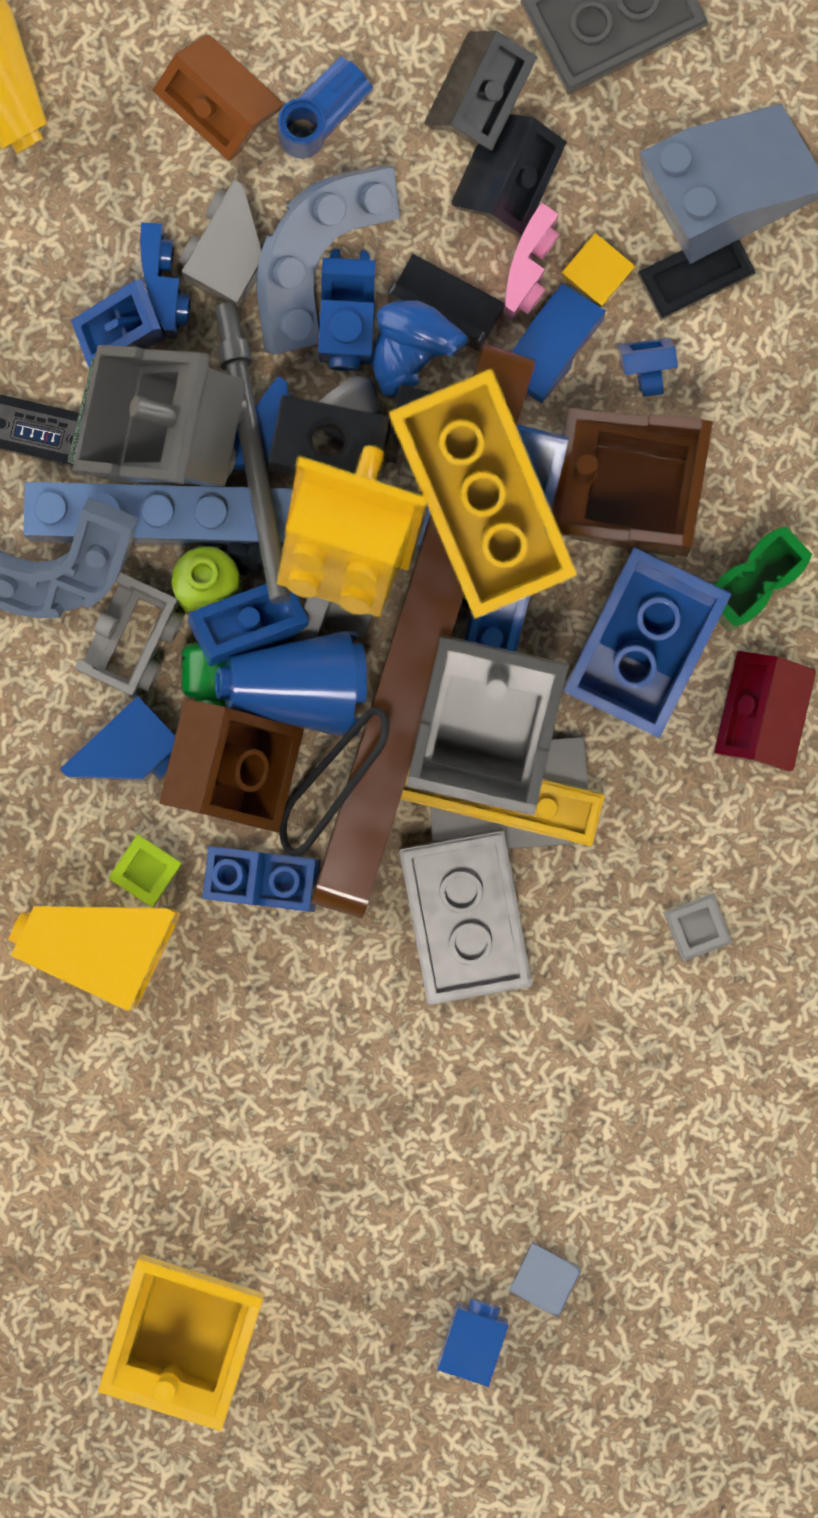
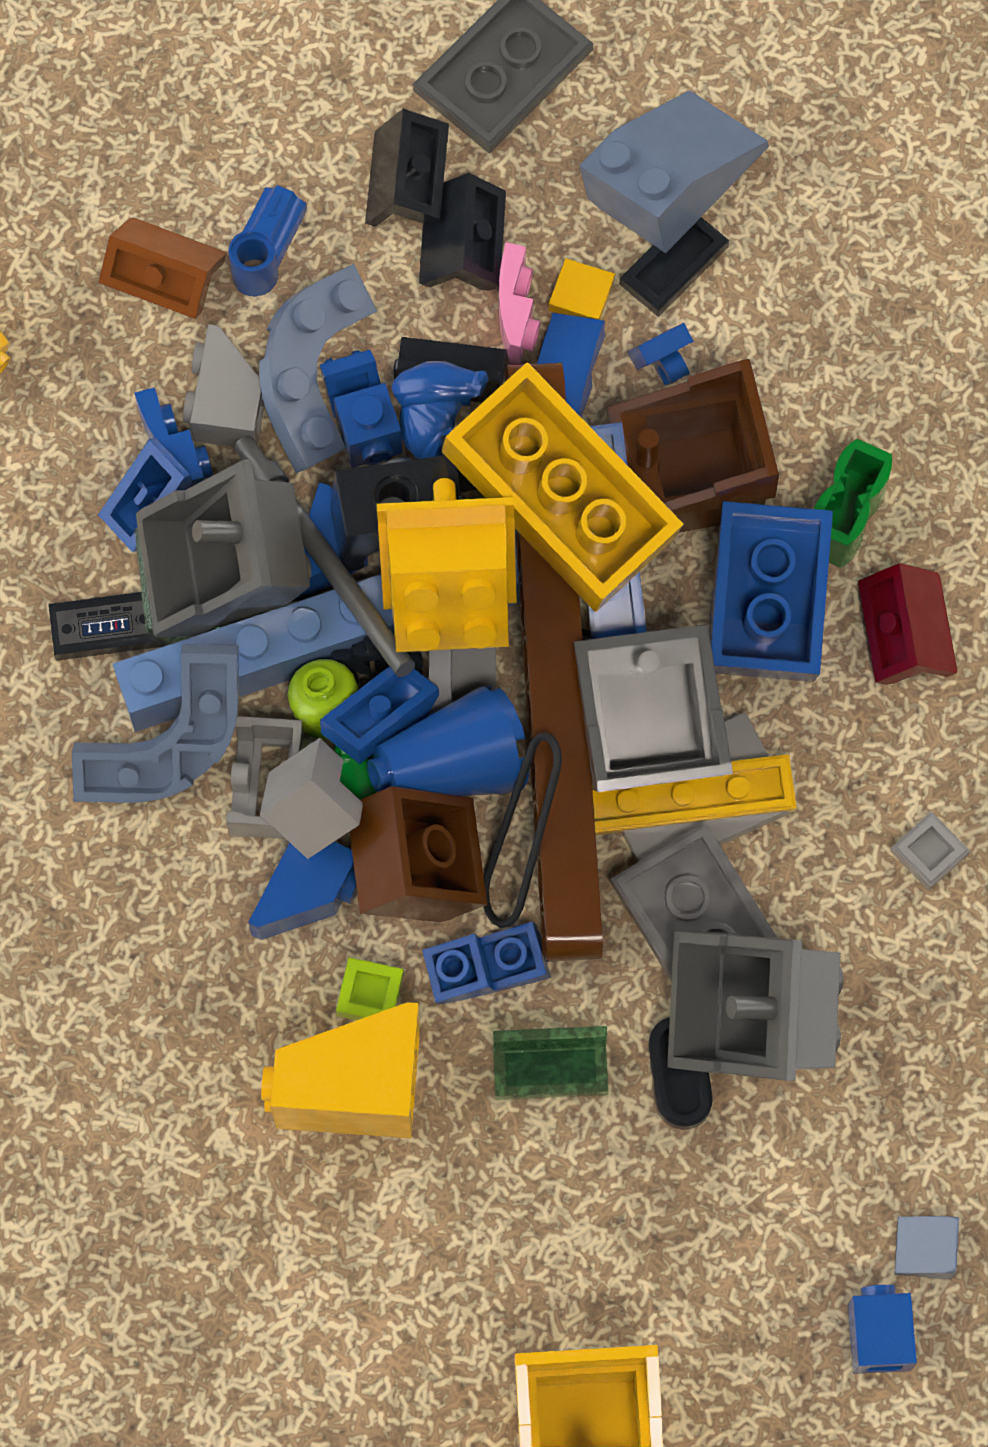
camera: 20 degrees left, 15 degrees down
(148, 685) = (309, 801): none -> light grey piece
(281, 994) = (550, 1062): none -> clear green panel
(393, 1042) = (680, 1095): none -> black tile
(473, 1023) = (752, 1005): none -> dark grey piece

